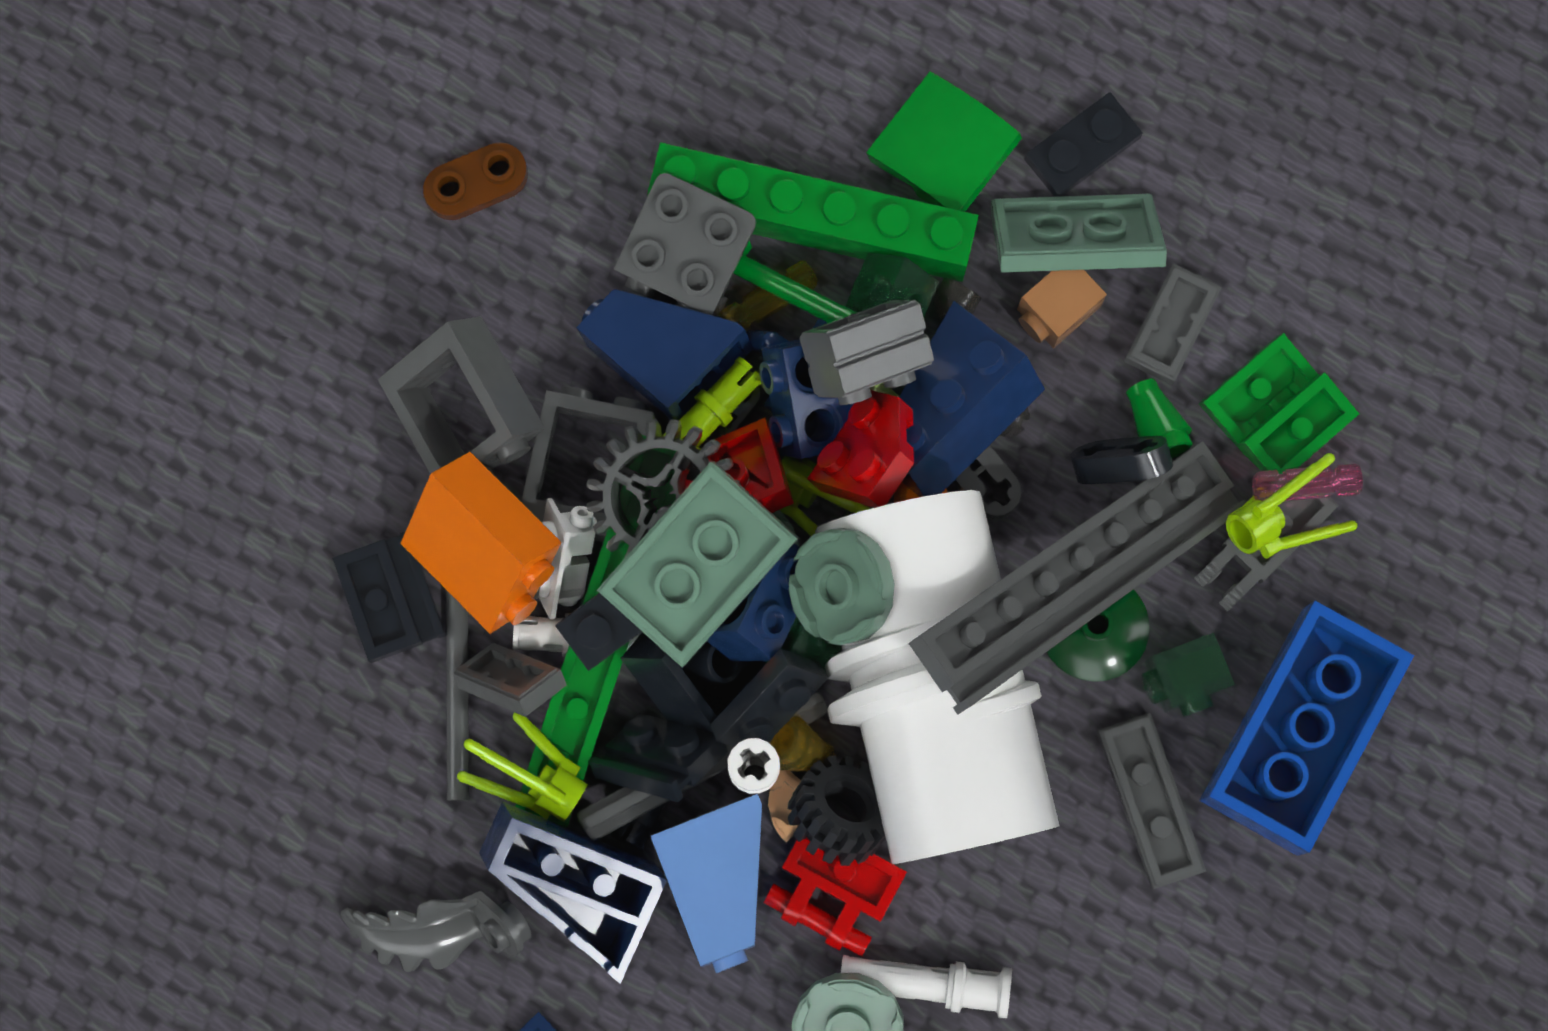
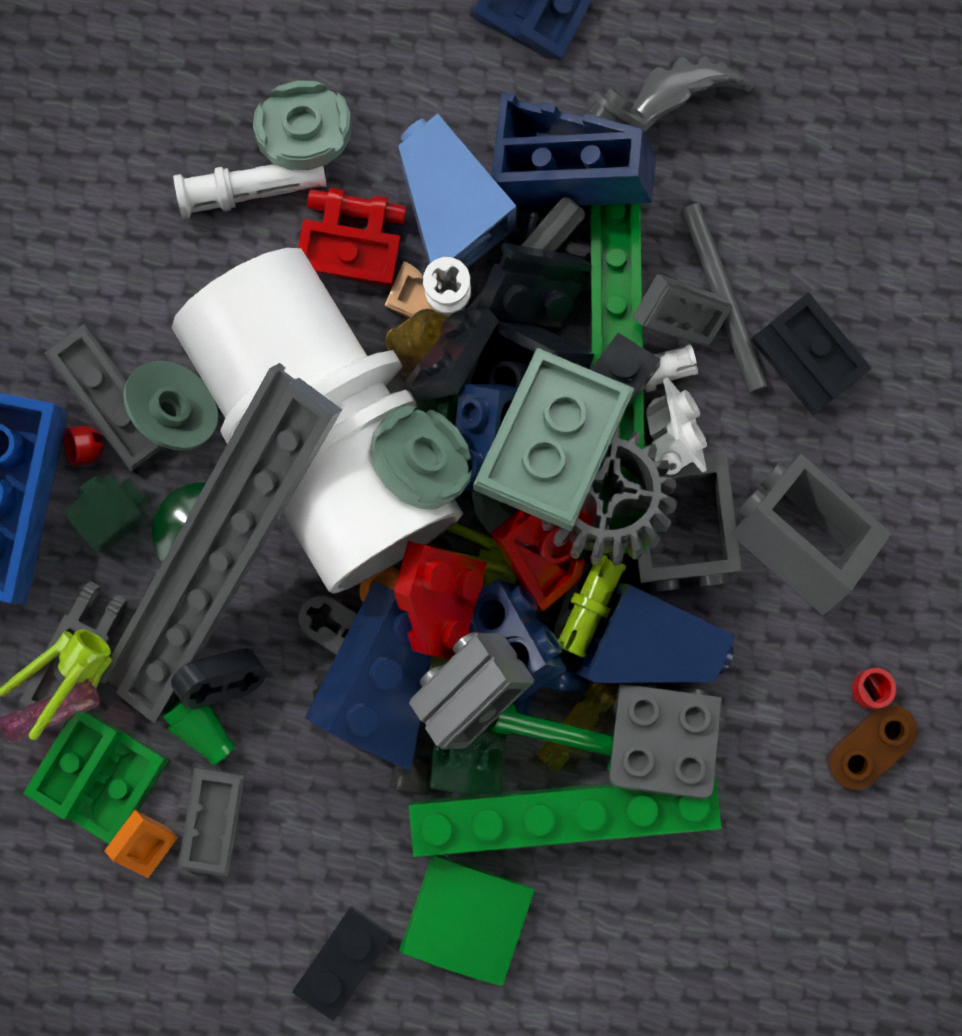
camera: 165 degrees right, 5 degrees up
(443, 235) = (879, 683): none -> red hinge
(481, 543) = (749, 413): orange brick -> none
(551, 792) = (613, 227): lime plant -> none
(822, 825) = (384, 278): black tyre -> none
(1059, 305) = (317, 805): medium nougat brick -> none
(1068, 758) = (170, 405): none -> sand green dish
(1077, 233) = (320, 873): sand green tile -> none
(1195, 757) = (81, 445): none -> red hinge
(1252, 324) = (141, 844): none -> orange plate

